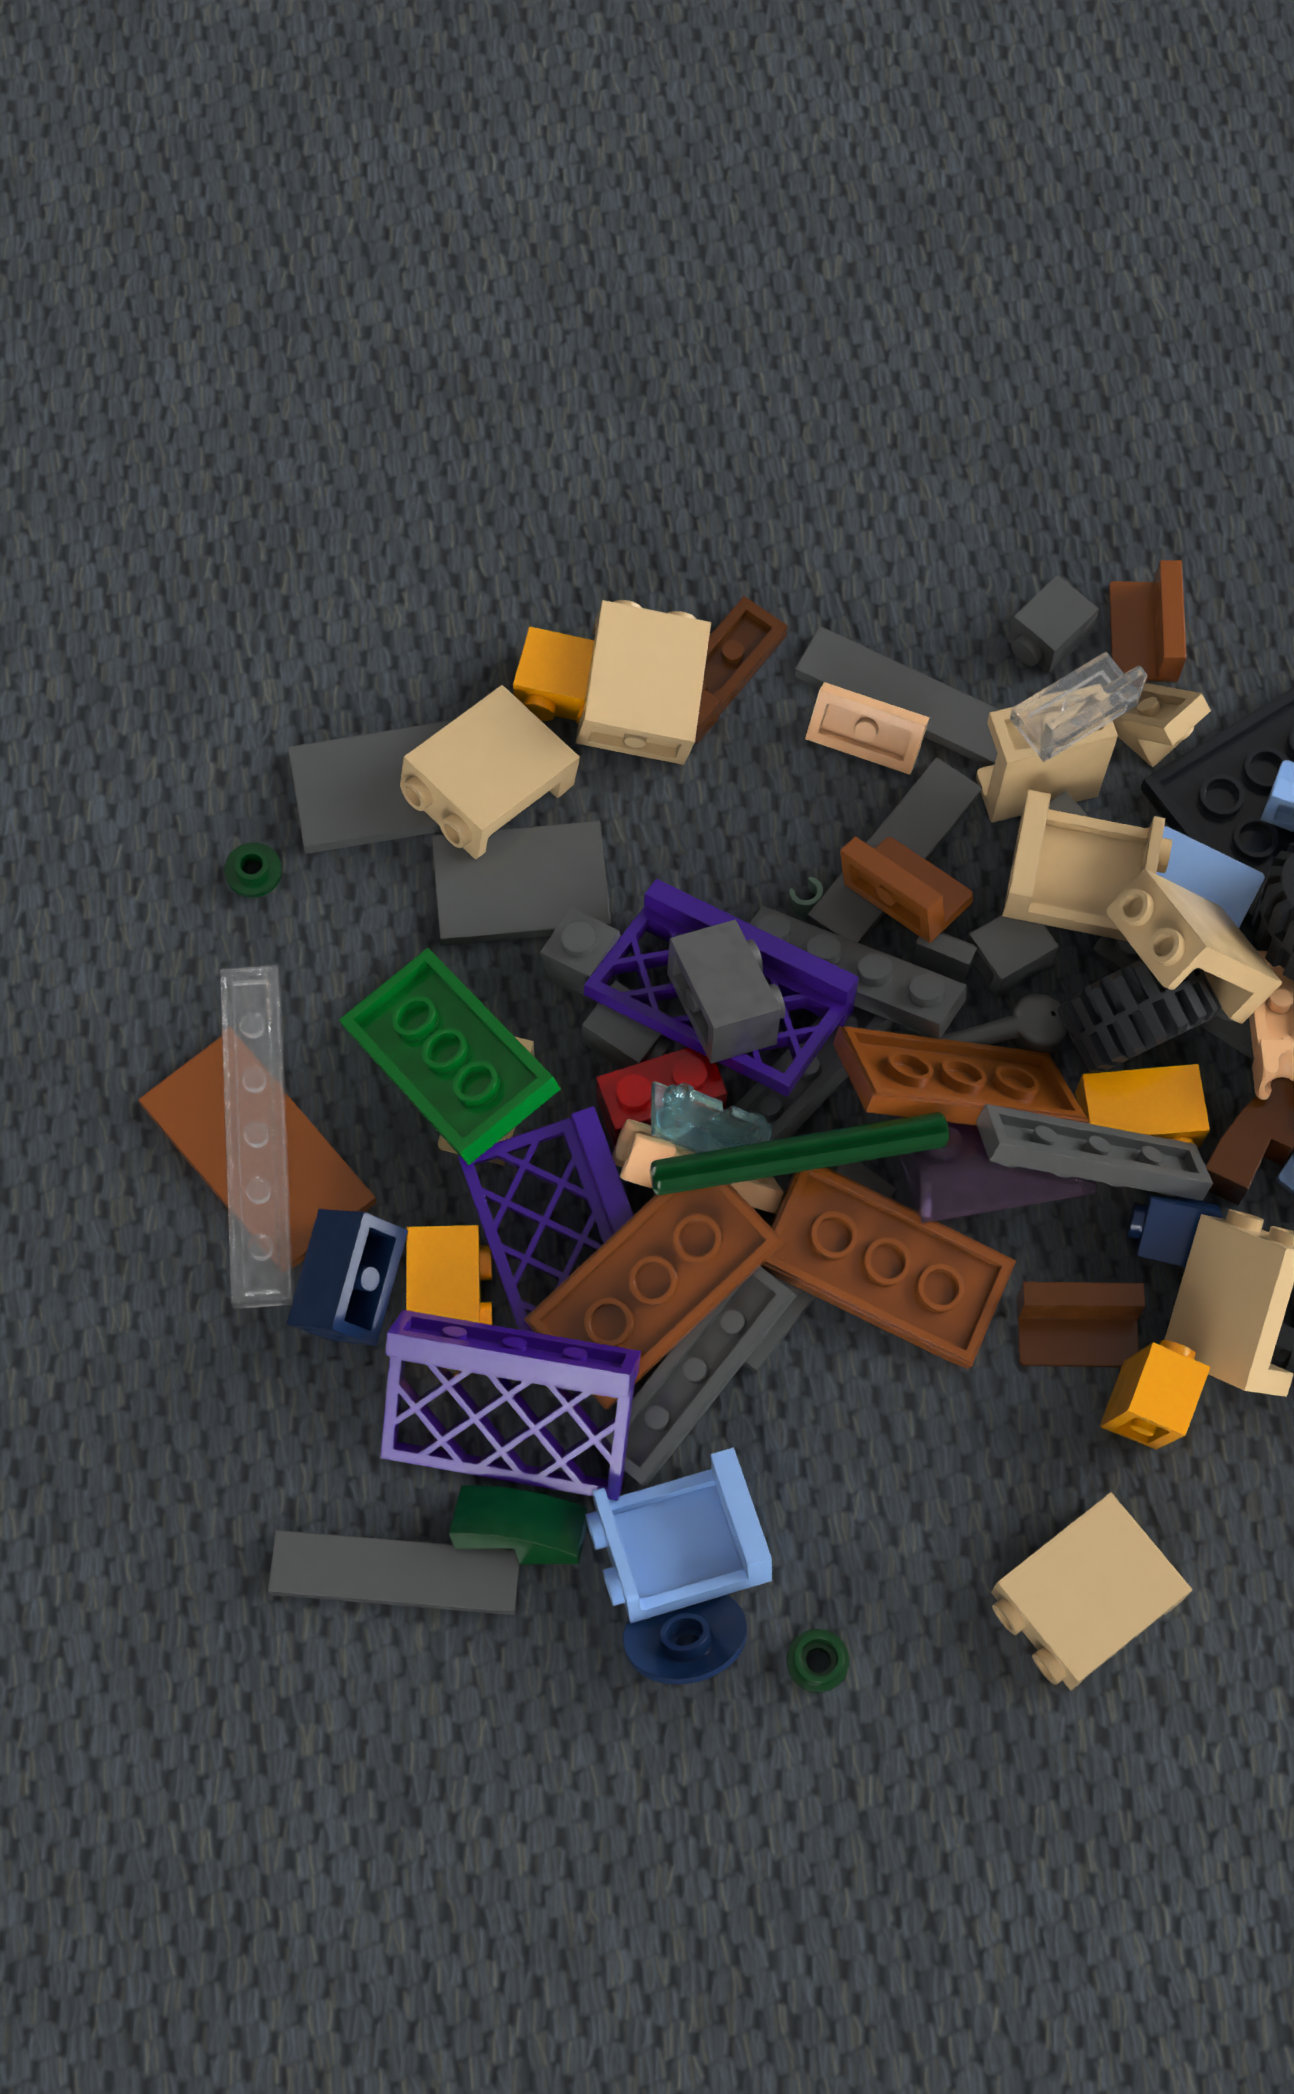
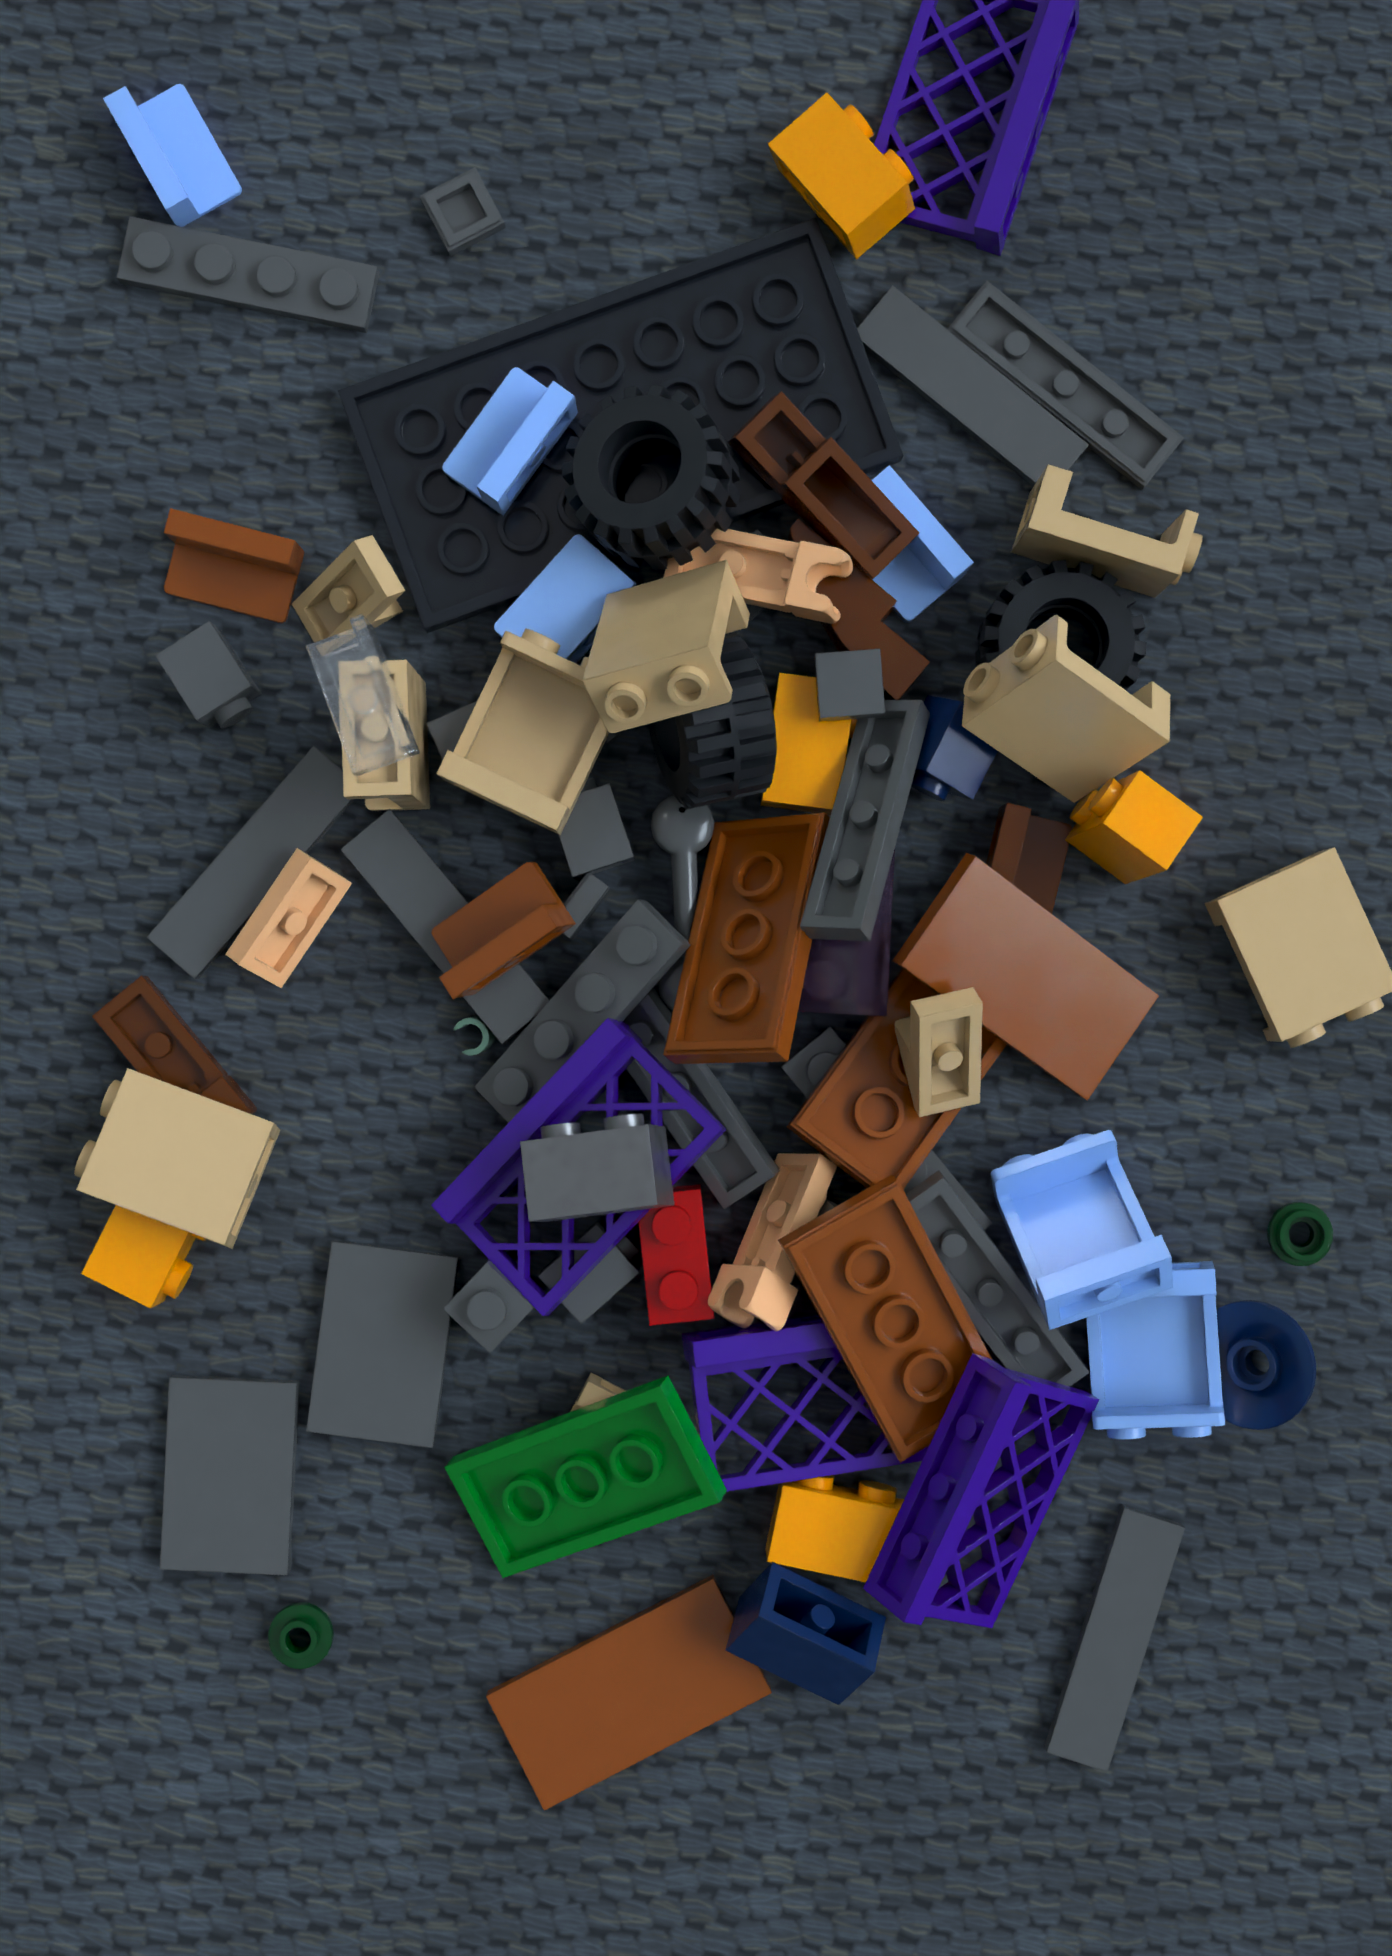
camera: 75 degrees left, 20 degrees up
(256, 1138) = (617, 1695): clear tile -> none
(486, 770) = (247, 1359): tan panel -> none
(531, 1523) = (1101, 1505): dark green slope -> none
(700, 1121) = (736, 1224): clear light blue hinge -> none
(775, 1435) = (1080, 1229): none -> light blue panel
(799, 1153) = (814, 1143): dark green axle -> none
(906, 1268) = (942, 1051): none -> tan slope
(990, 1338) = (1036, 976): none -> dark orange tile
(1206, 1119) = (849, 685): none -> dark grey tile

